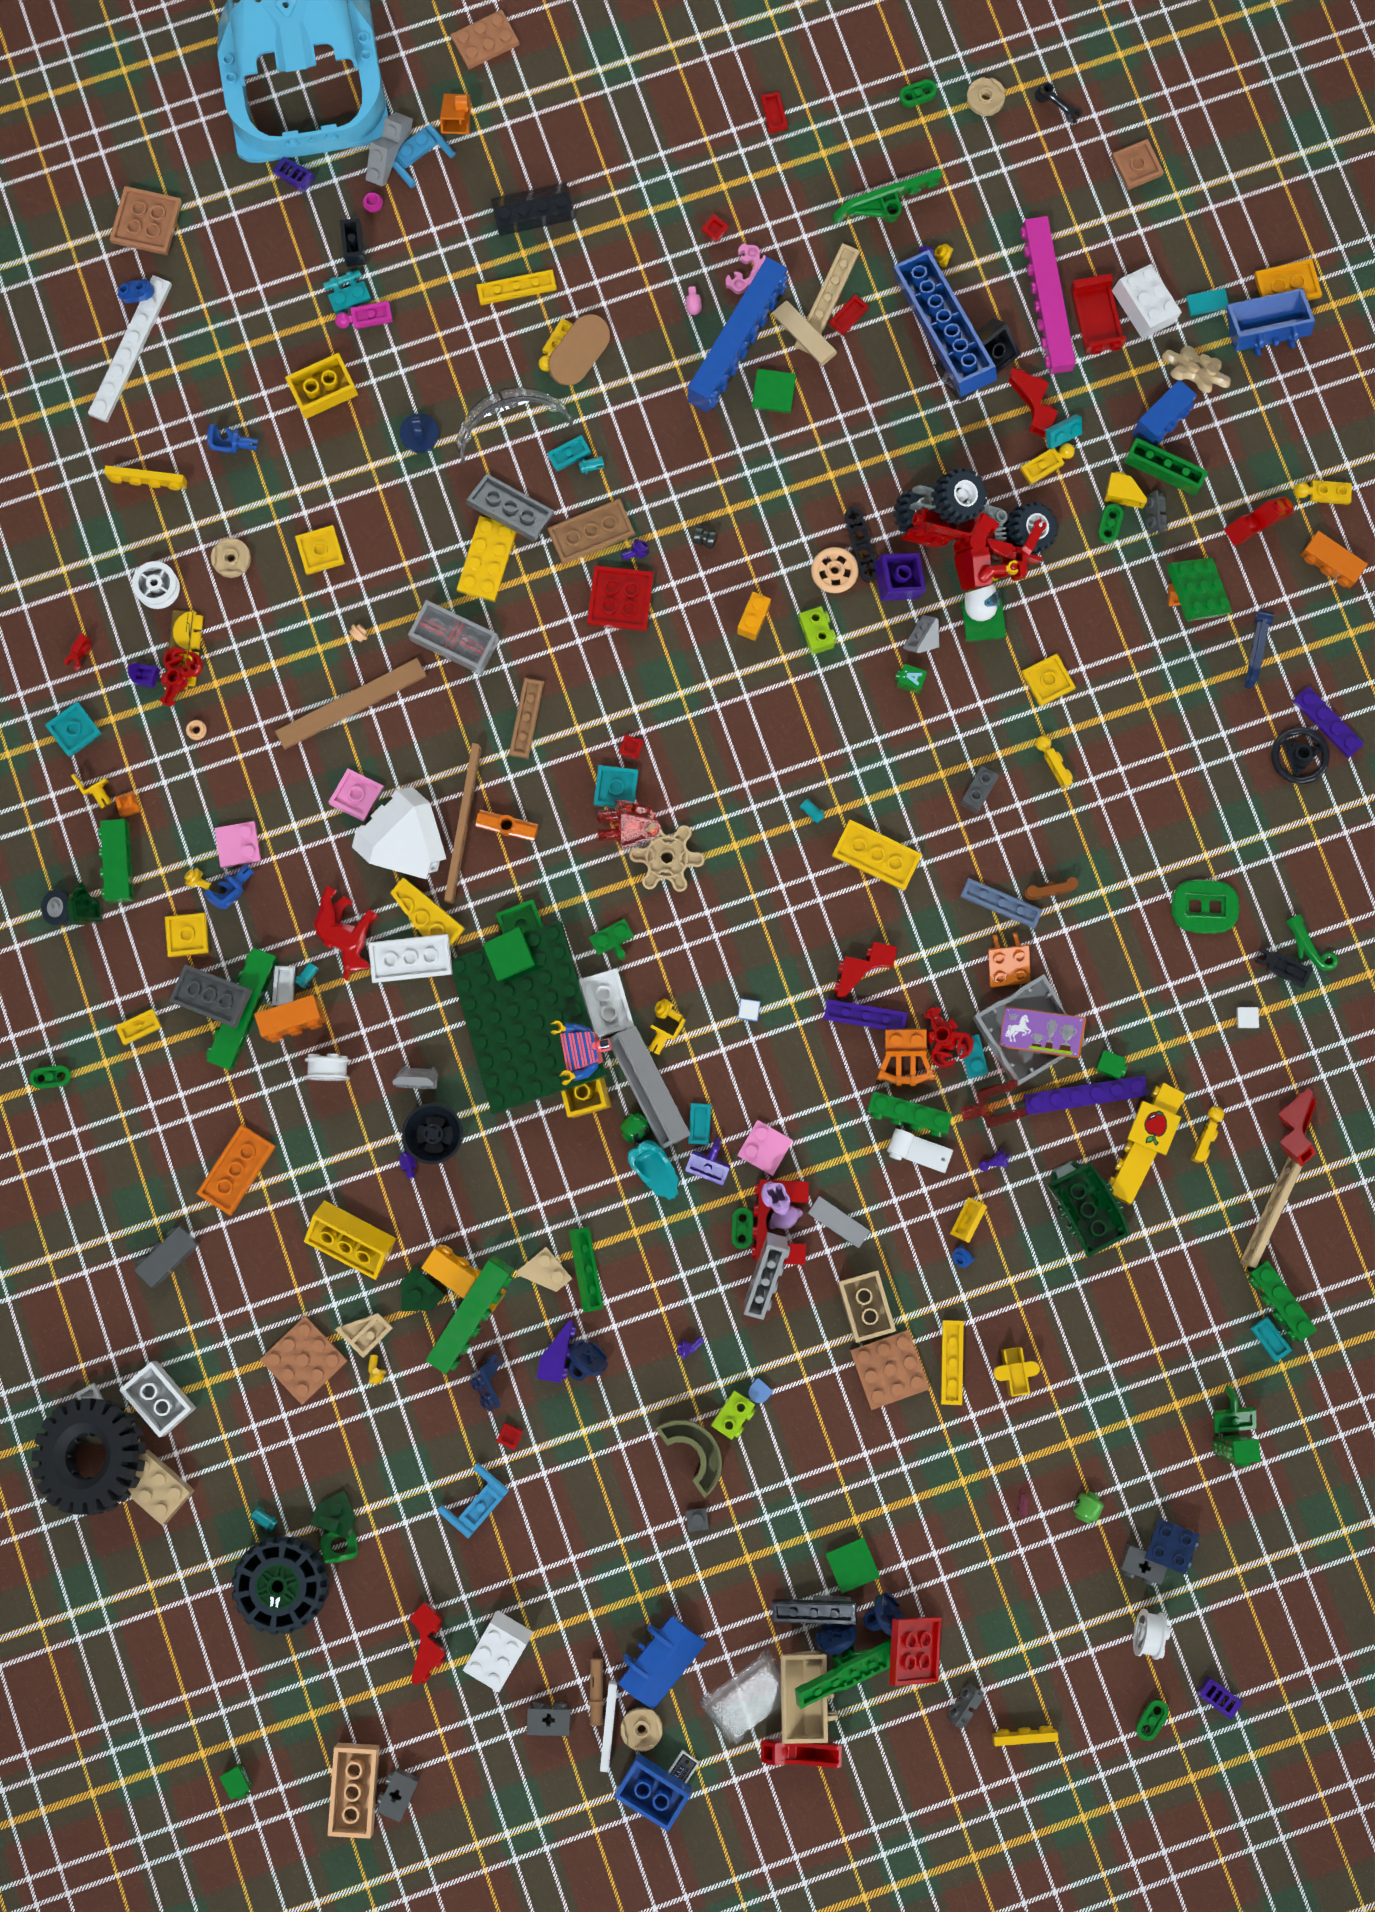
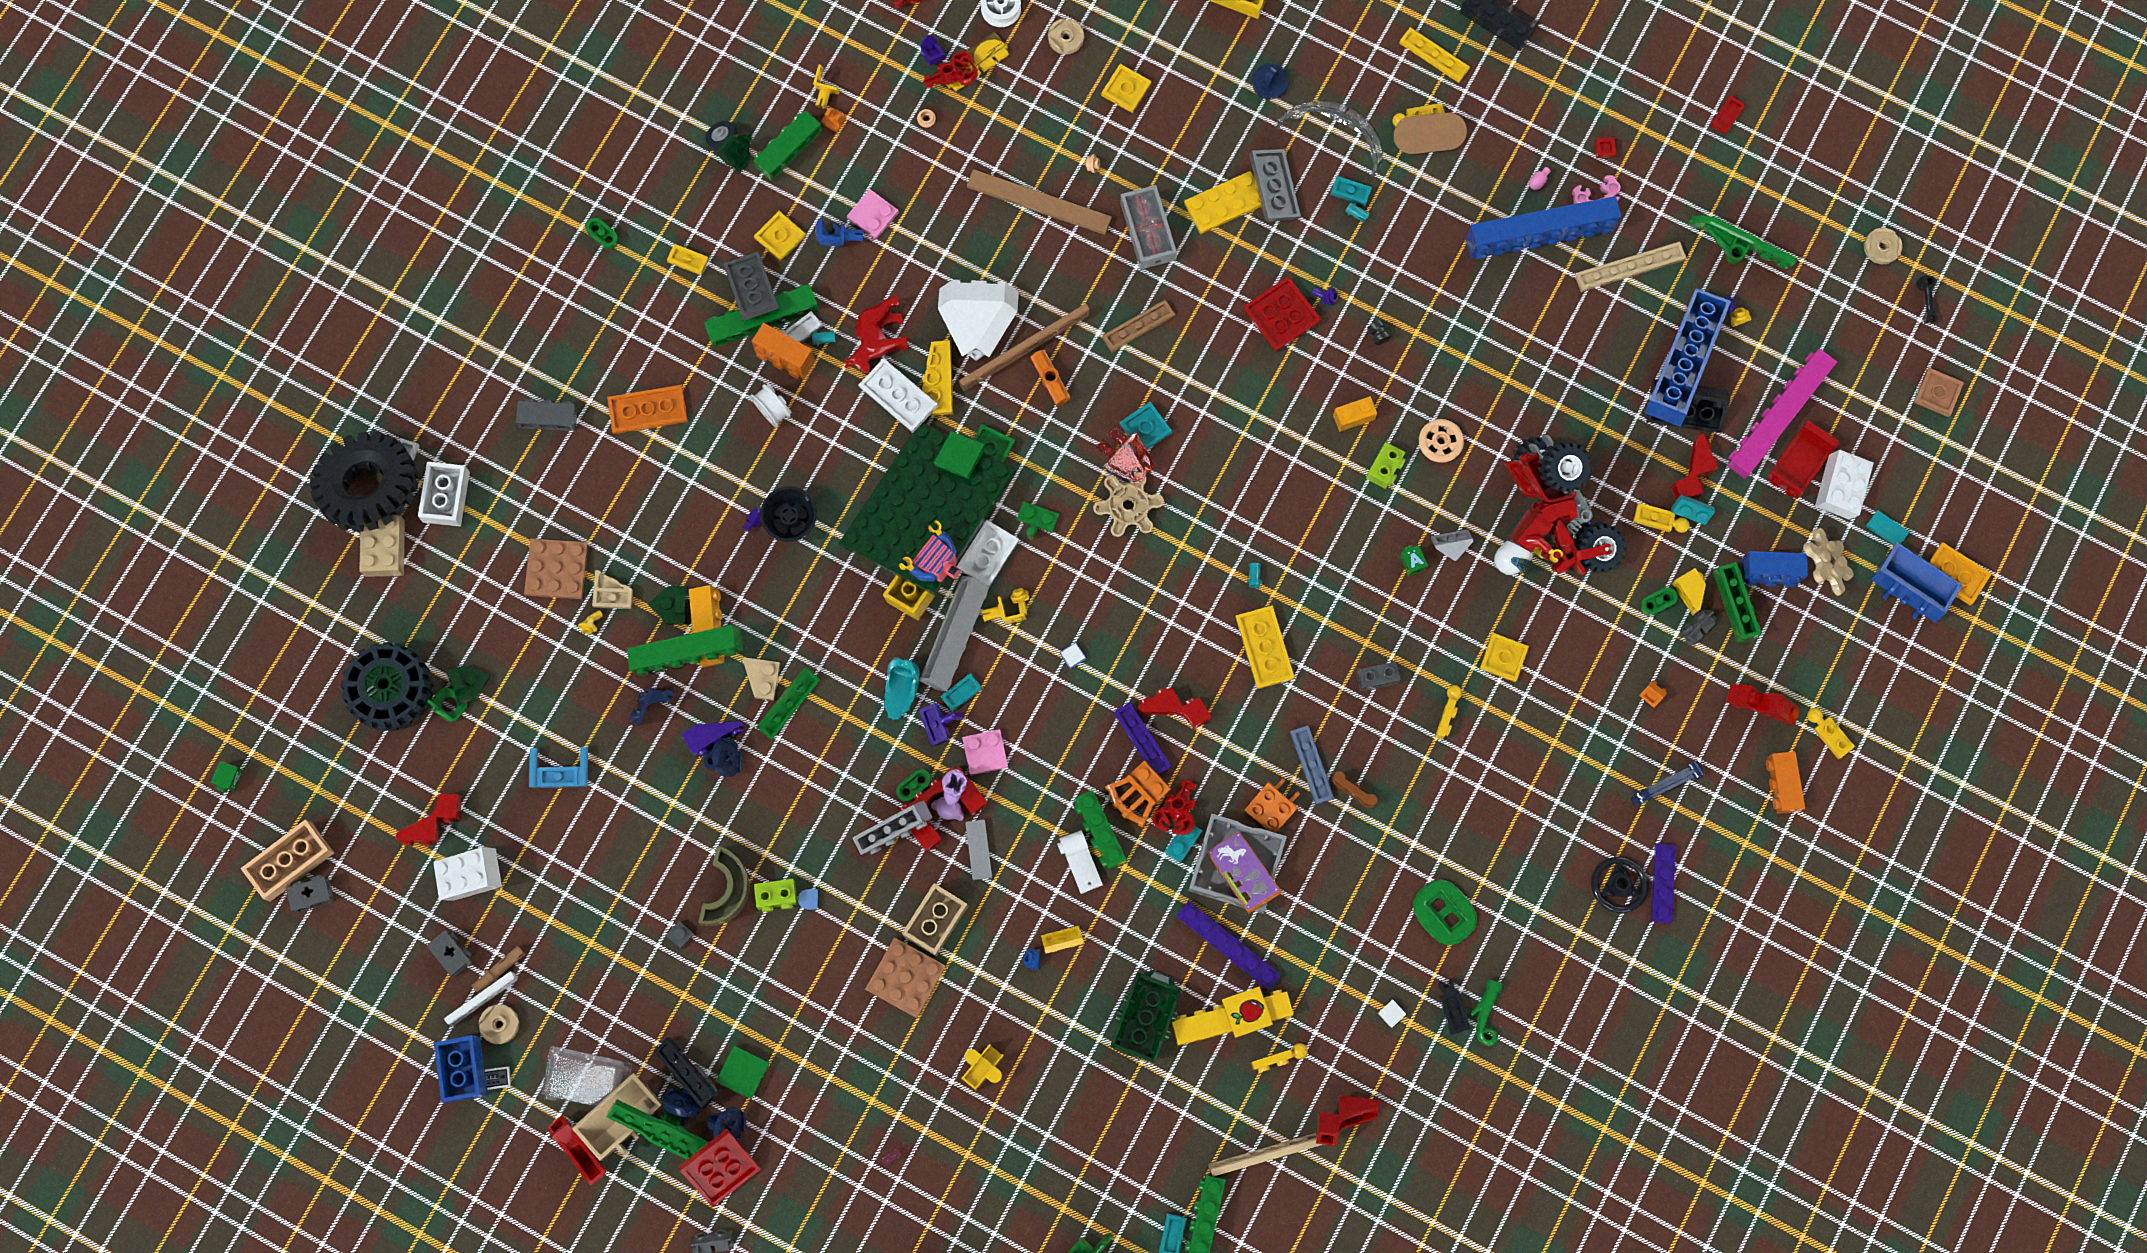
camera: 45 degrees right, 5 degrees down
(73, 729) = (852, 40): teal plate -> none
(193, 878) = (823, 205): yellow plate -> none
(264, 1519) = (423, 638): teal pin -> none
(349, 1239) = (666, 525): yellow slope -> none
(356, 795) = (978, 260): bright pink plate -> none
(416, 1078) = (817, 471): light grey slope -> none
(509, 1436) = (625, 754): red tile -> none
(591, 531) = (1310, 254): medium nougat tile -> none
(631, 747) = (1184, 413): red tile -> none
(634, 1127) = (917, 649): green head -> none
(660, 1661) = (558, 995): blue piece -> none
(685, 1348) = (792, 820): dark purple plate -> none
(773, 391) = (1528, 287): green tile -> none
(804, 333) = (1589, 271): tan tile -> none
(849, 315) = (1633, 291): red tile -> none
(864, 544) = (1475, 442): black beam -> none
(900, 576) = (1478, 487): dark purple brick -> none
(916, 92) = (1838, 197): green plate -> none
(952, 1362) = (949, 1017): yellow plate -> none
(982, 1109) = (1151, 878): clear red piece -> none
(984, 630) = (1501, 583): green tile -> none
(997, 1160) = (1125, 924): dark purple piece -> none
(1088, 1507) = (931, 1206): bright green head -> none
(1111, 1065) = (1266, 944): green brick -> none
(1199, 589) = (1670, 703): green plate -> none

